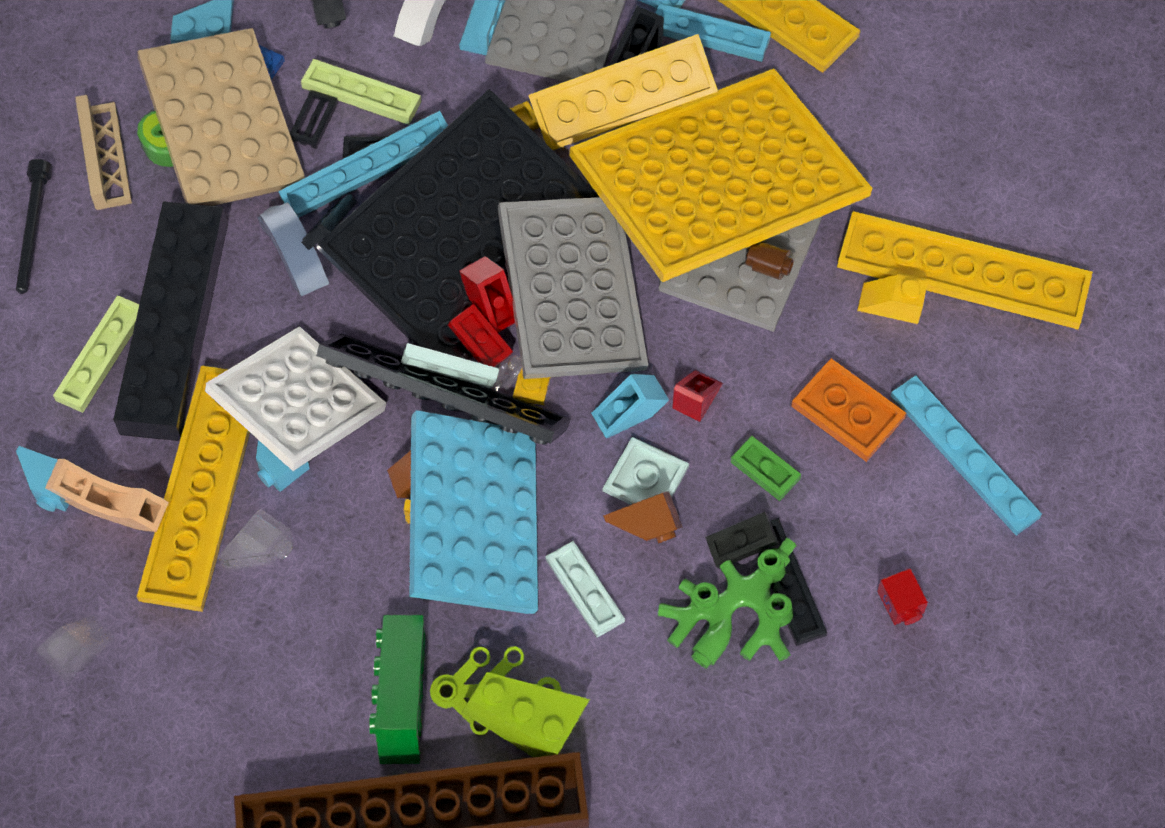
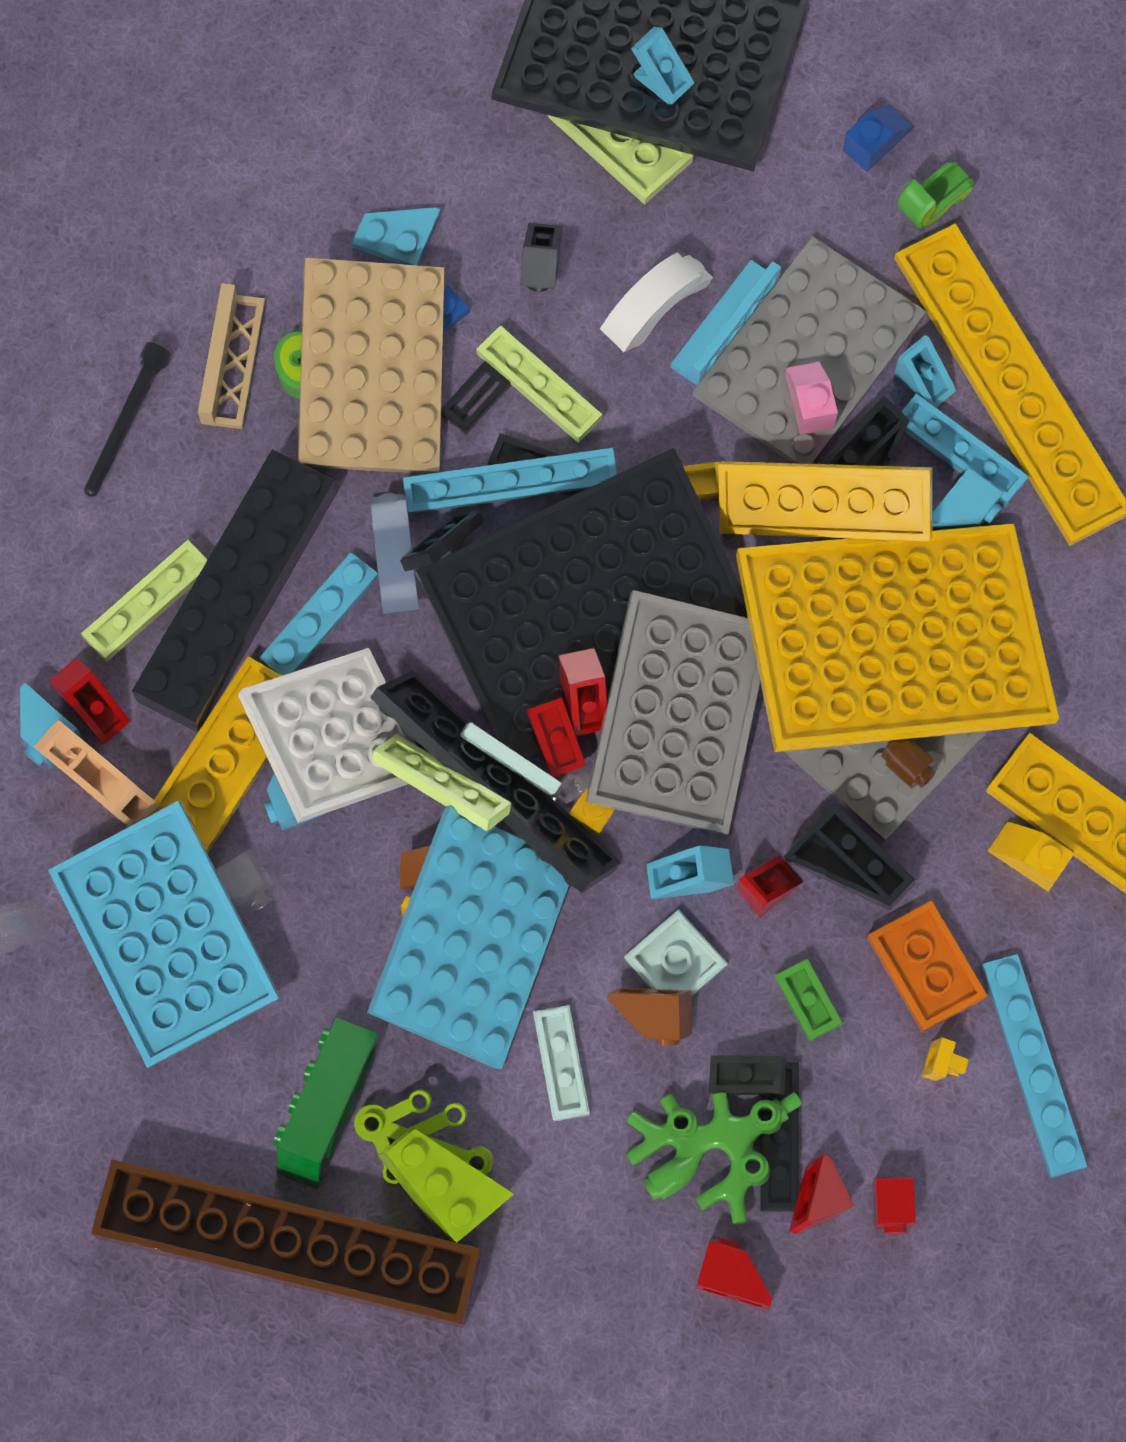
camera: 20 degrees right, 10 degrees up
(79, 444) = (89, 700): none -> red slope
(211, 601) = (164, 934): none -> medium azure plate
(249, 316) = (319, 616): none -> medium azure plate
(392, 398) = (441, 783): none -> yellowish green plate
(582, 29) = (811, 397): none -> bright pink slope
(734, 63) = (968, 504): none -> medium azure slope
(755, 349) = (850, 859): none -> black wedge
(797, 701) = (732, 1274): none -> red slope
(840, 612) = (820, 1196): none -> red slope
(893, 474) = (943, 1061): none -> yellow tile

